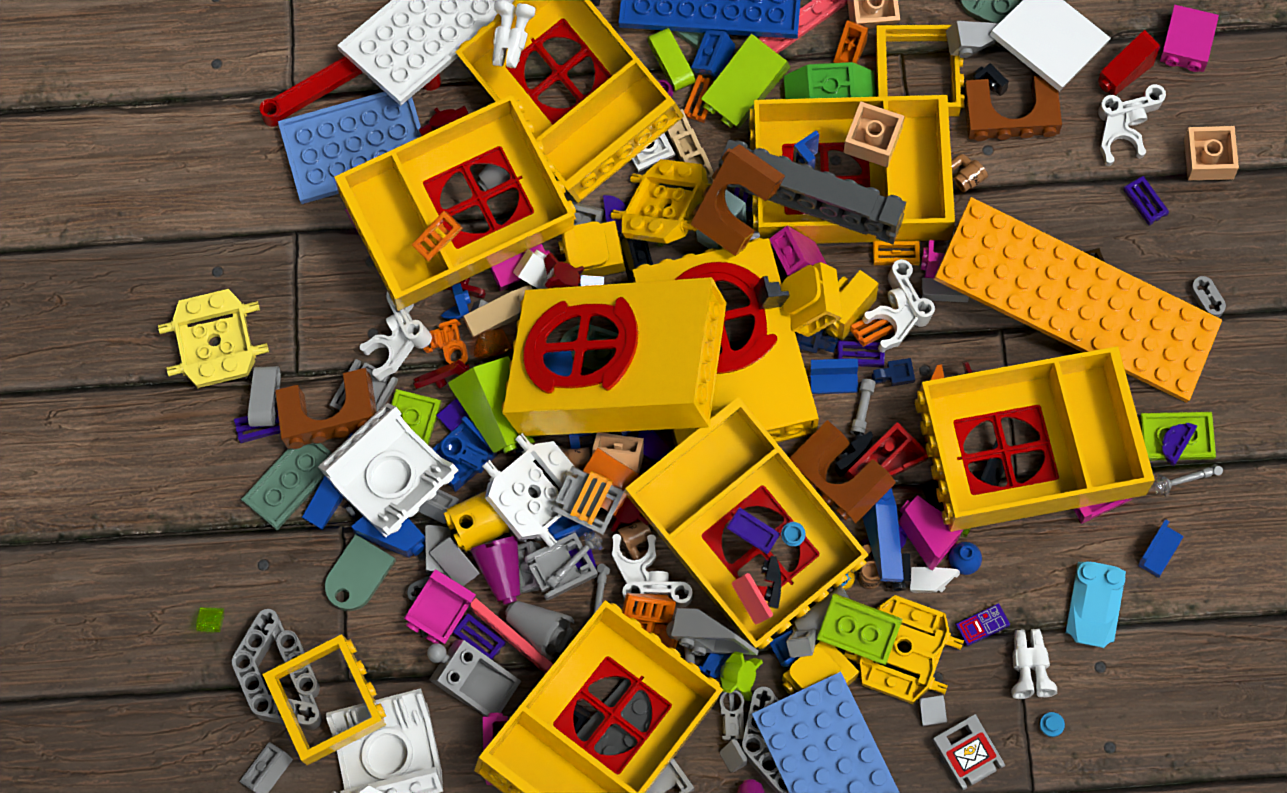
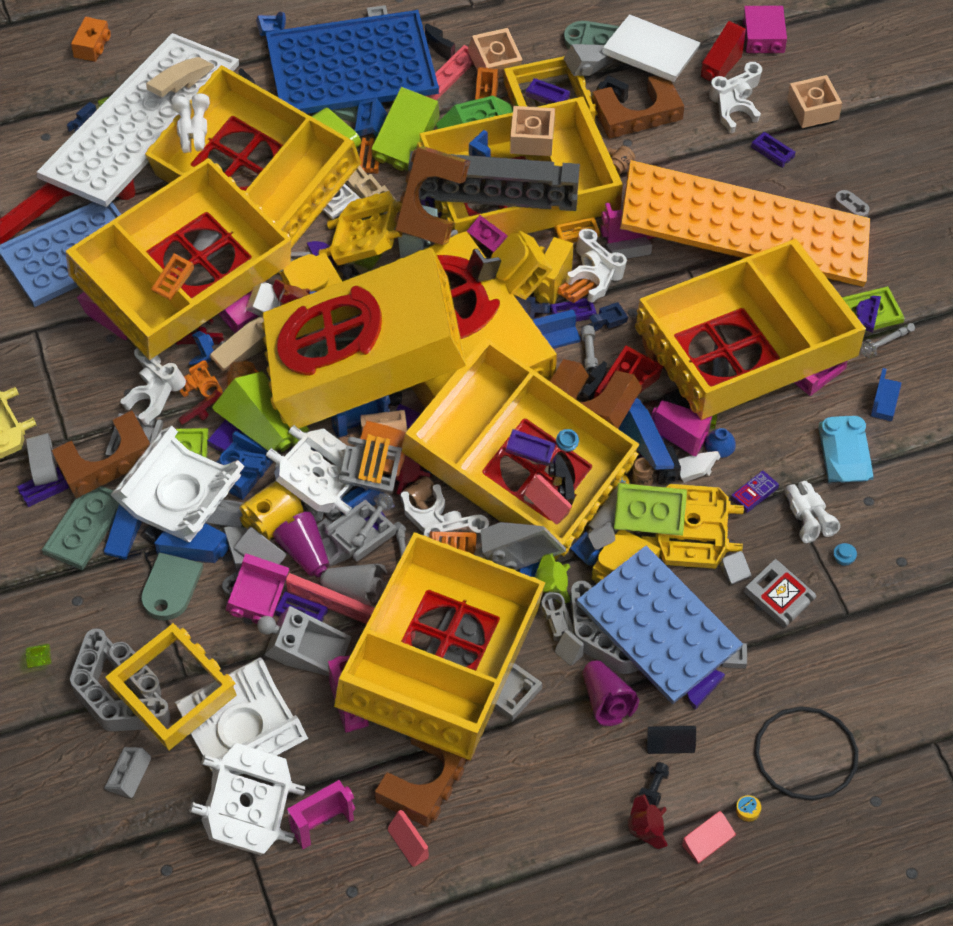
camera: 20 degrees left, 15 degrees down
(914, 71) = (546, 92): none -> dark purple tile

